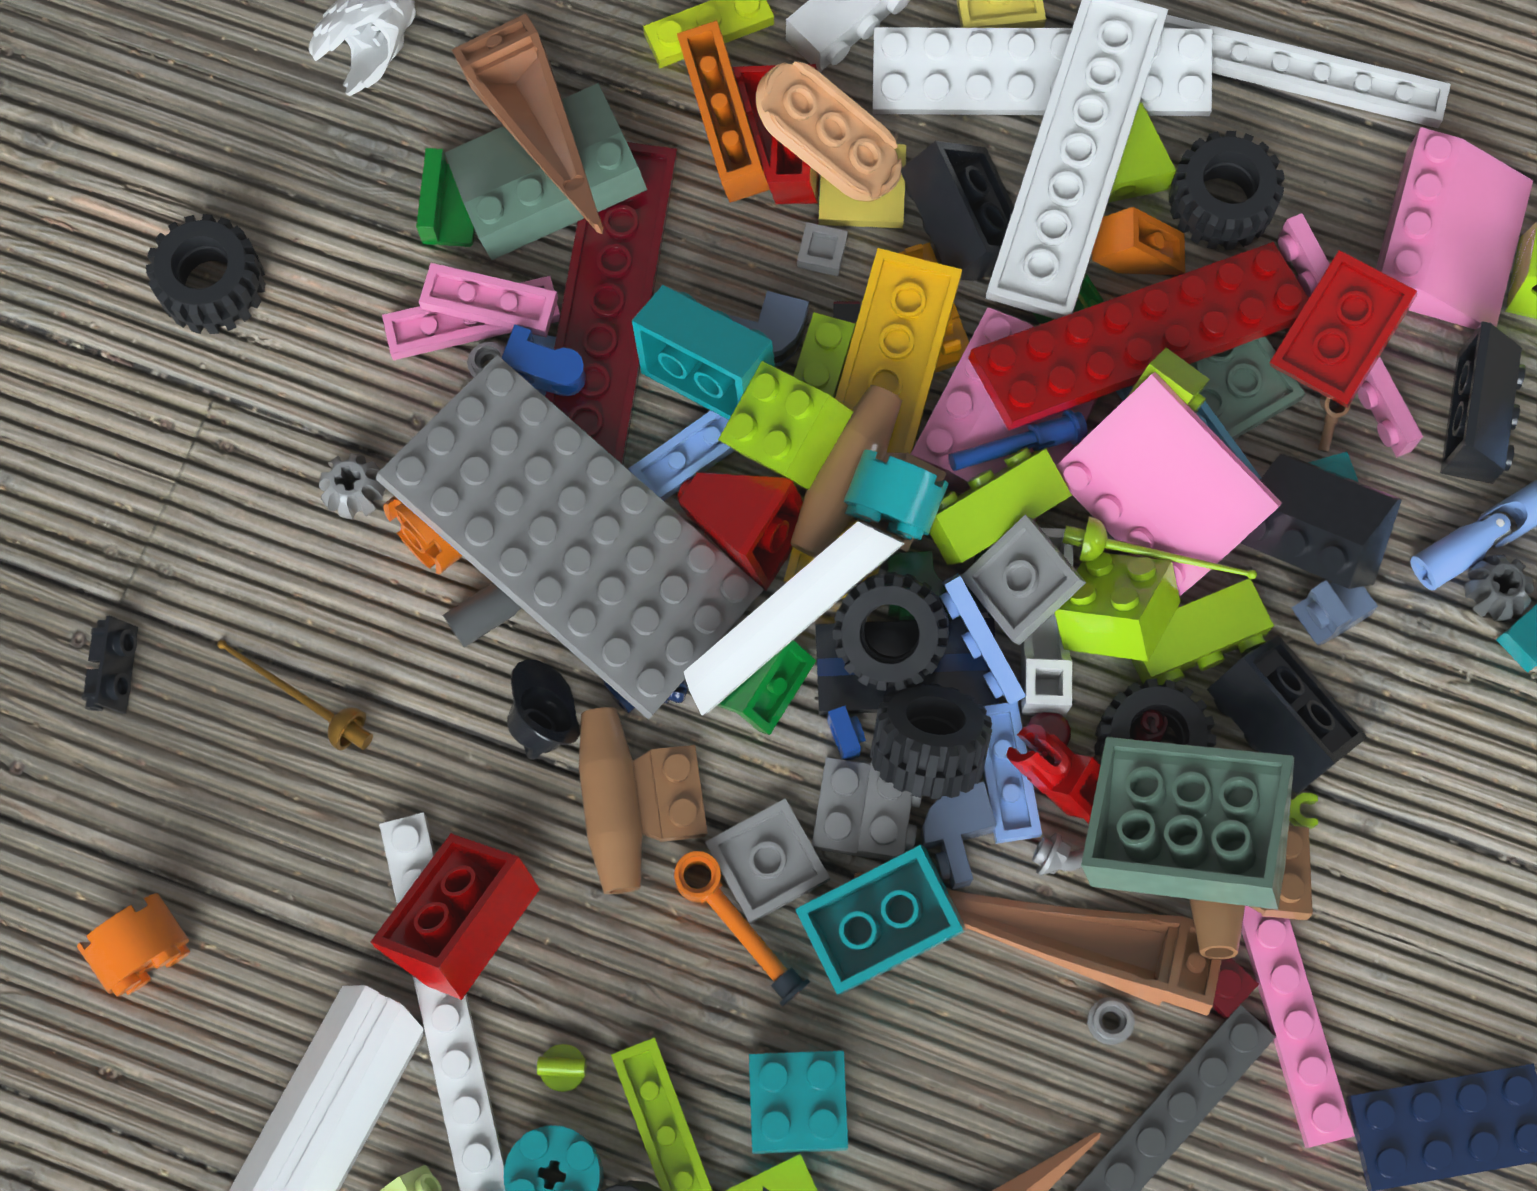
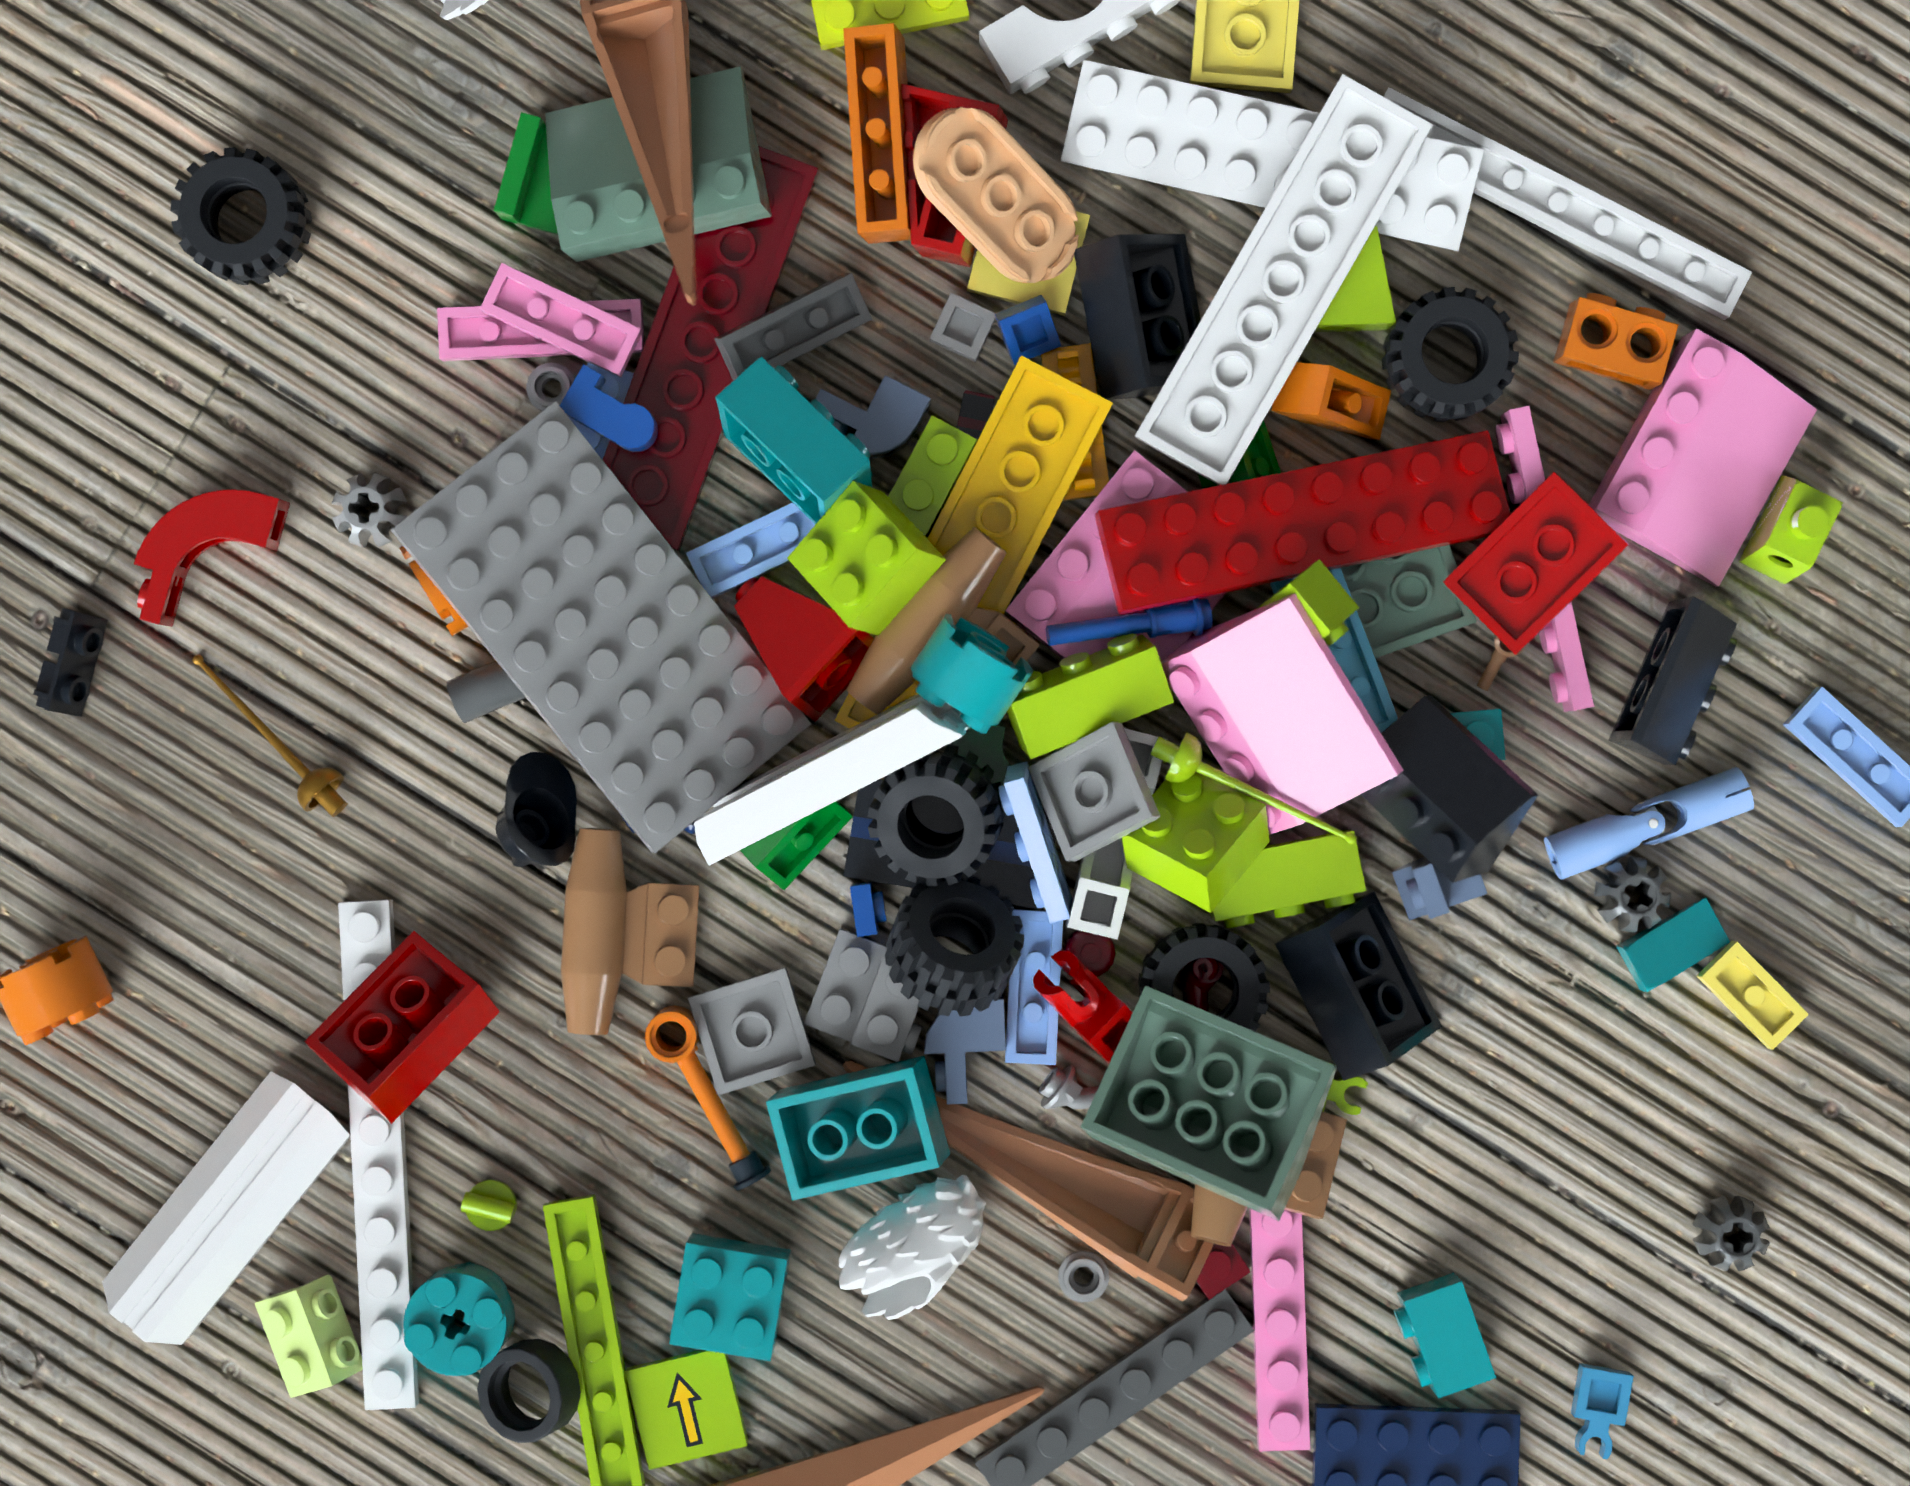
camera: 10 degrees right, 15 degrees up
(203, 530) = (194, 528): none -> red arch
(686, 267) = (795, 326): none -> dark grey plate
(875, 233) = (1028, 329): none -> blue plate
(954, 1019) = (913, 1246): none -> white head
(1358, 168) = (1614, 355): none -> orange brick
(1446, 1004) = (1445, 1336): none -> teal brick

